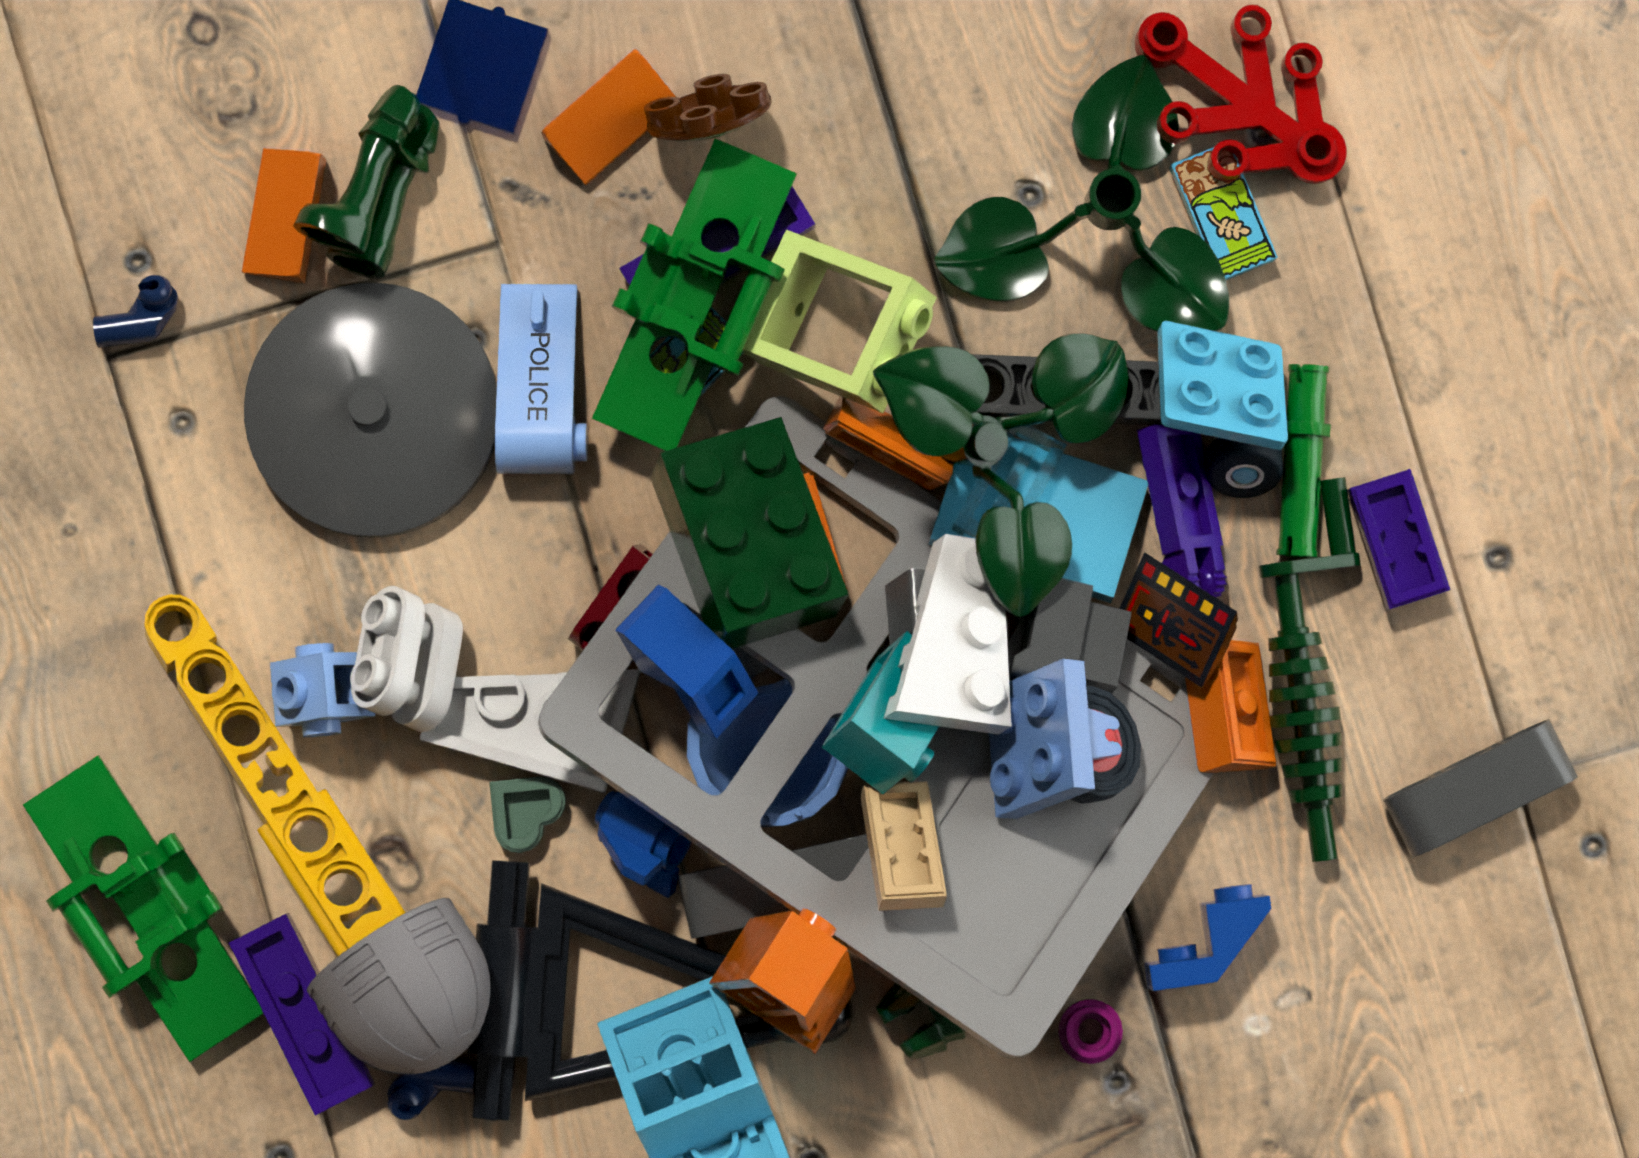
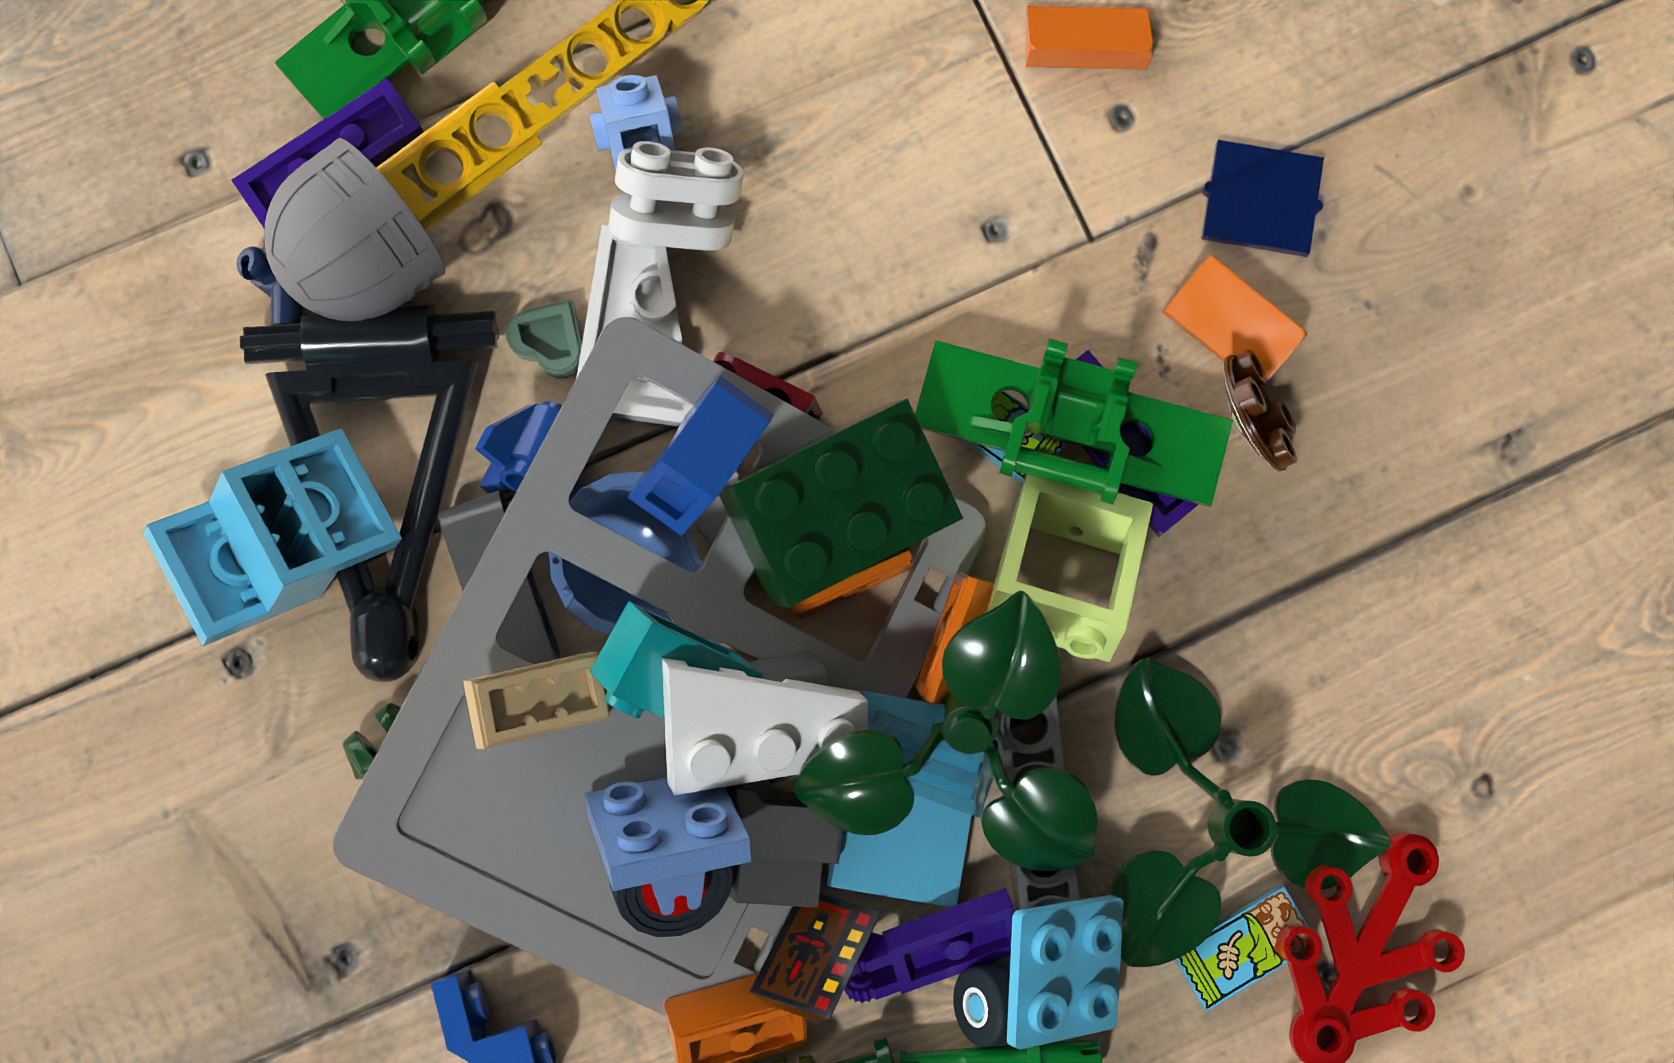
camera: 85 degrees right, 5 degrees down
(366, 218) = (1181, 121): dark green piece -> none
(371, 410) = (914, 143): dark grey dish -> none
(537, 381) = (969, 285): light blue door -> none
(789, 974) = (391, 600): orange wedge -> none
(1105, 1045) = (372, 924): magenta plate -> none

